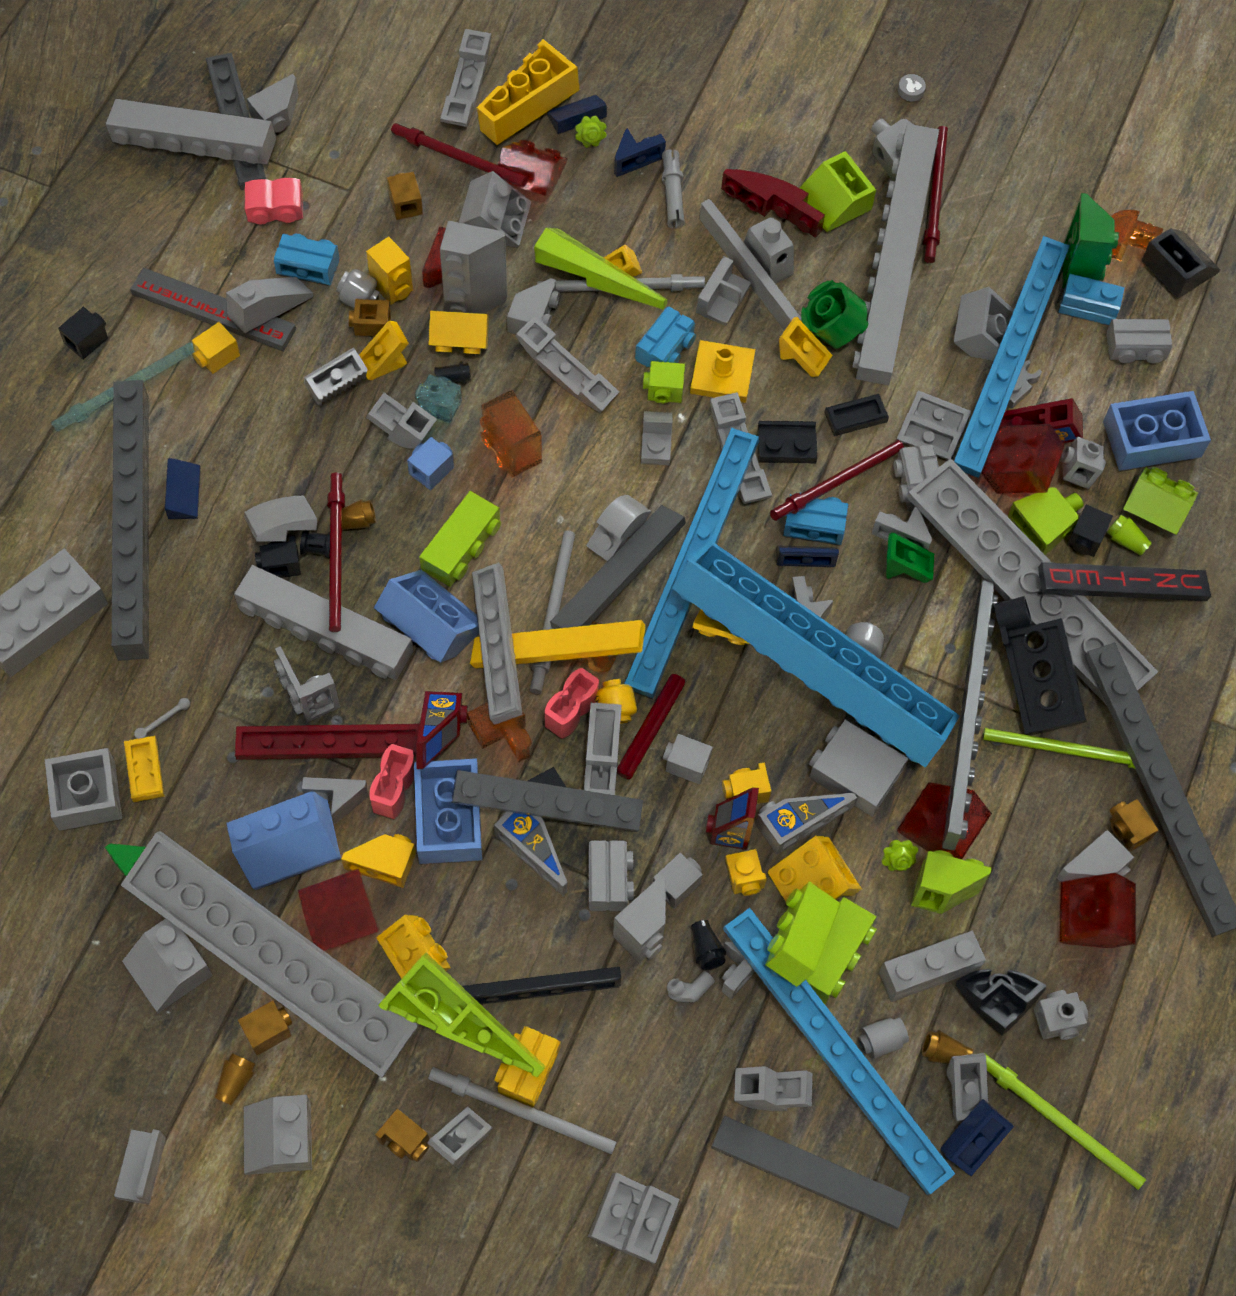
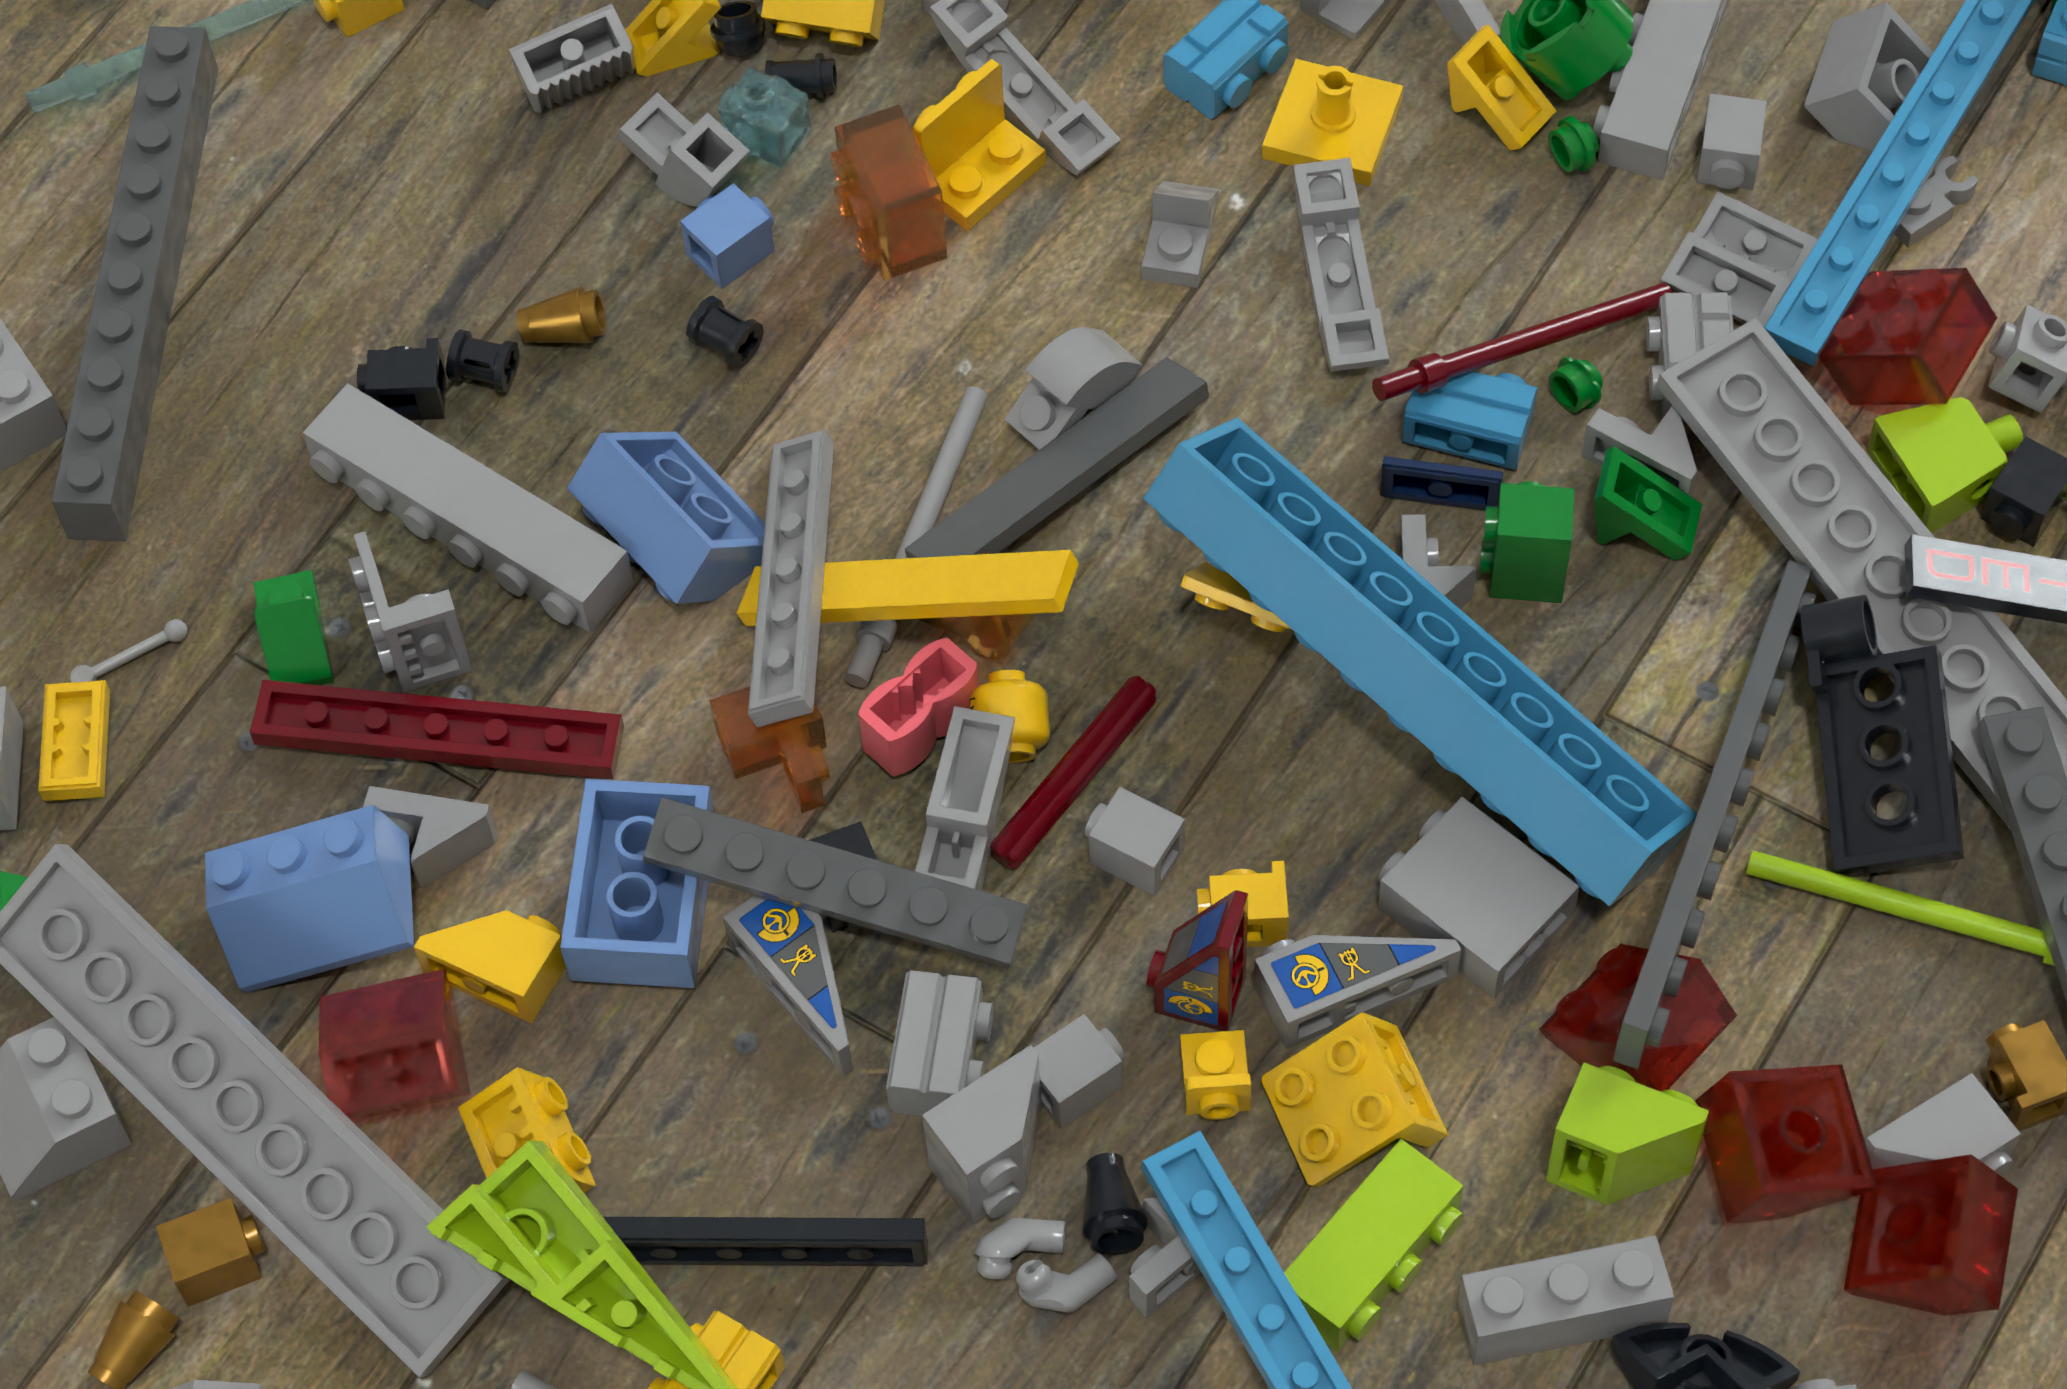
camera: 15 degrees right, 5 degrees down
(182, 489) = (246, 238): dark blue slope -> none
(245, 697) = (292, 629): none -> green slope
(273, 518) = (401, 303): light grey slope -> none
(335, 503) = (529, 288): dark red bar -> none
(389, 786) = (538, 818): coral brick -> none
(417, 351) = (738, 28): none -> black plate
(435, 513) = (724, 332): none -> black bush
(439, 724) = (647, 718): slope -> none
(460, 539) = (759, 380): lime brick -> none
(550, 404) = (974, 147): none -> yellow bracket
(661, 968) = (1014, 1237): none -> light grey arm
(664, 382) = (1212, 129): lime brick -> none
(706, 526) = (1253, 392): dark azure plate -> none
(787, 442) = (1439, 265): black plate -> none
(802, 933) = (1297, 1194): lime brick -> none
(844, 372) = (1573, 145): none -> green plate
(856, 414) = (1587, 228): black tile -> none
(857, 584) = (1528, 542): none -> green brick
(864, 498) = (1576, 384): none -> green plate
(867, 636) = (1537, 645): light grey head -> none
(899, 855) = (1535, 1077): lime plant -> none
(920, 363) = (1731, 142): none -> light grey brick
(1024, 874) = (1784, 1142): none -> clear red slope
(1061, 415) = (2001, 263): dark red slope -> none

